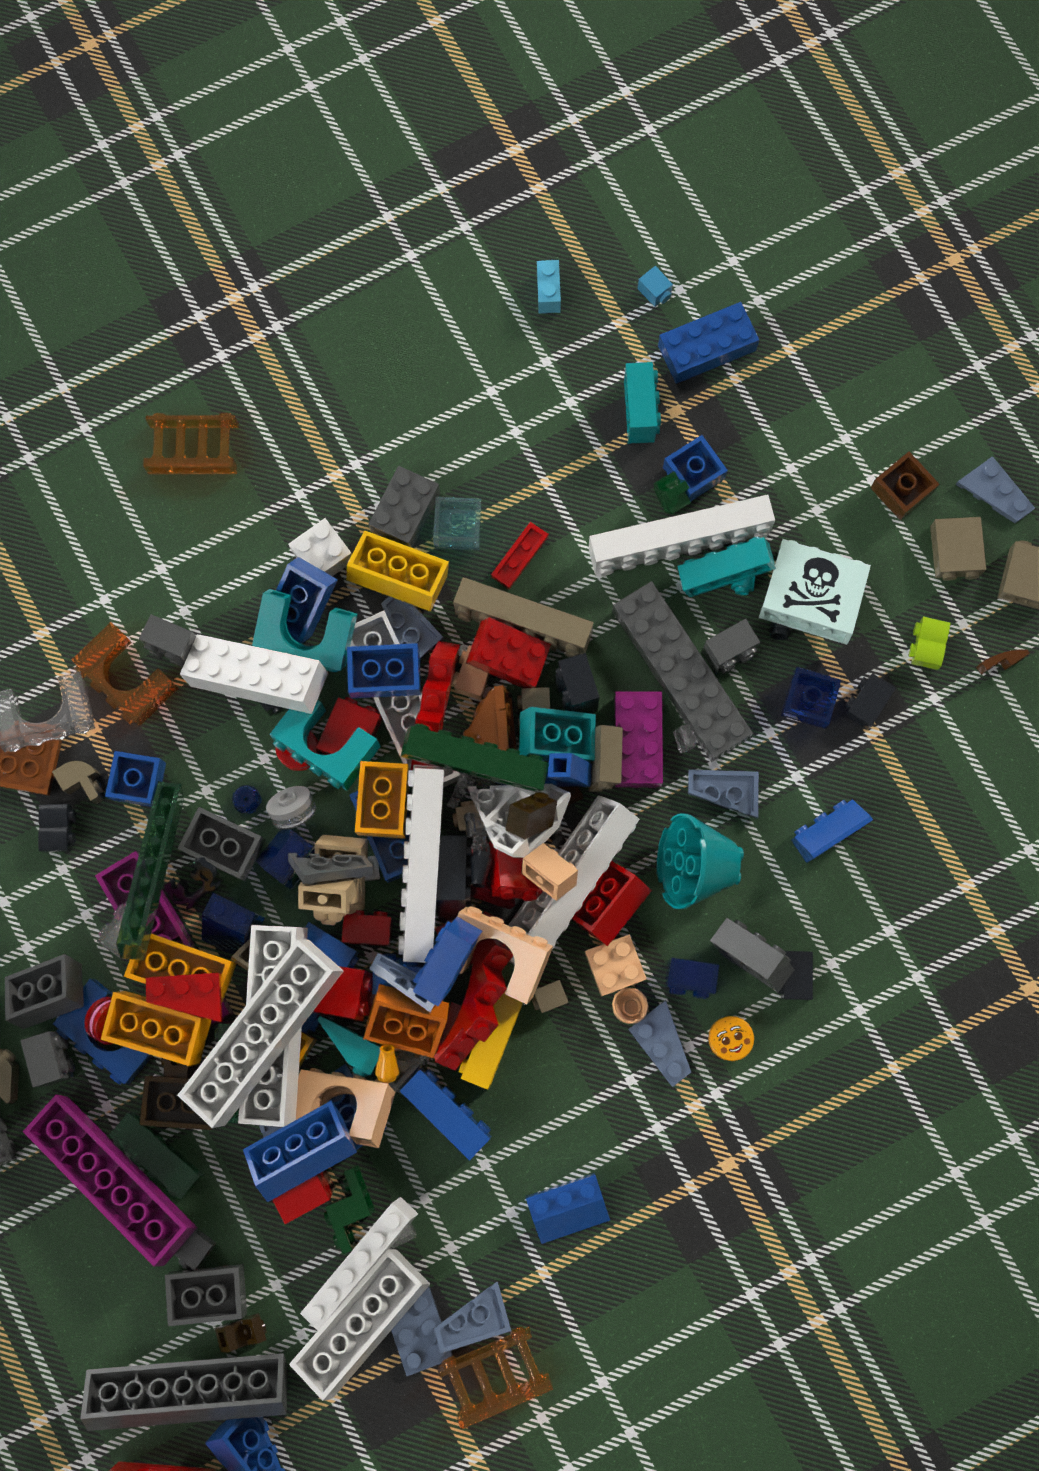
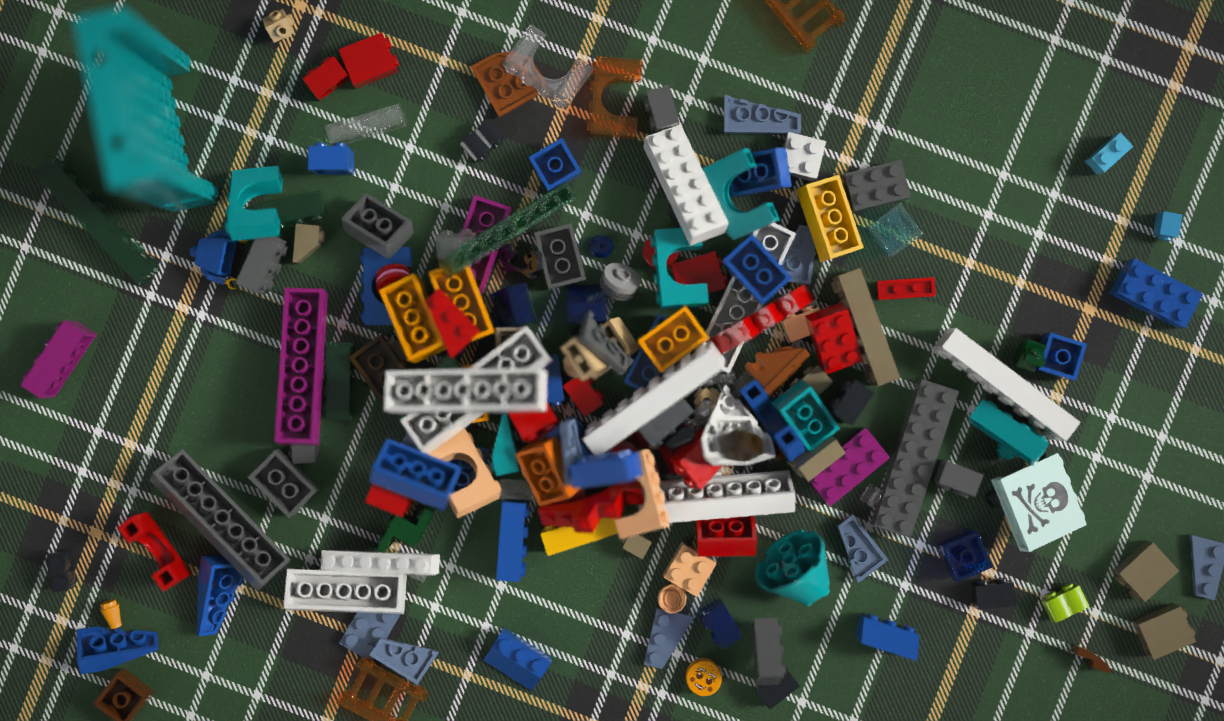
camera: 50 degrees right, 10 degrees up
(48, 1059) = (339, 264): dark grey brick -> none
(77, 775) = (528, 125): dark tan brick -> none
(241, 1333) = (279, 523): dark brown brick -> none
(250, 568) = (753, 118): none -> sand blue wing
(387, 1066) = (509, 482): light orange cone -> none
(474, 758) = (747, 380): dark green brick -> none
(549, 871) = (714, 485): light nougat brick -> none
(641, 402) = (1077, 284): teal brick -> none
(904, 485) = (1160, 504): reddish brown brick -> none

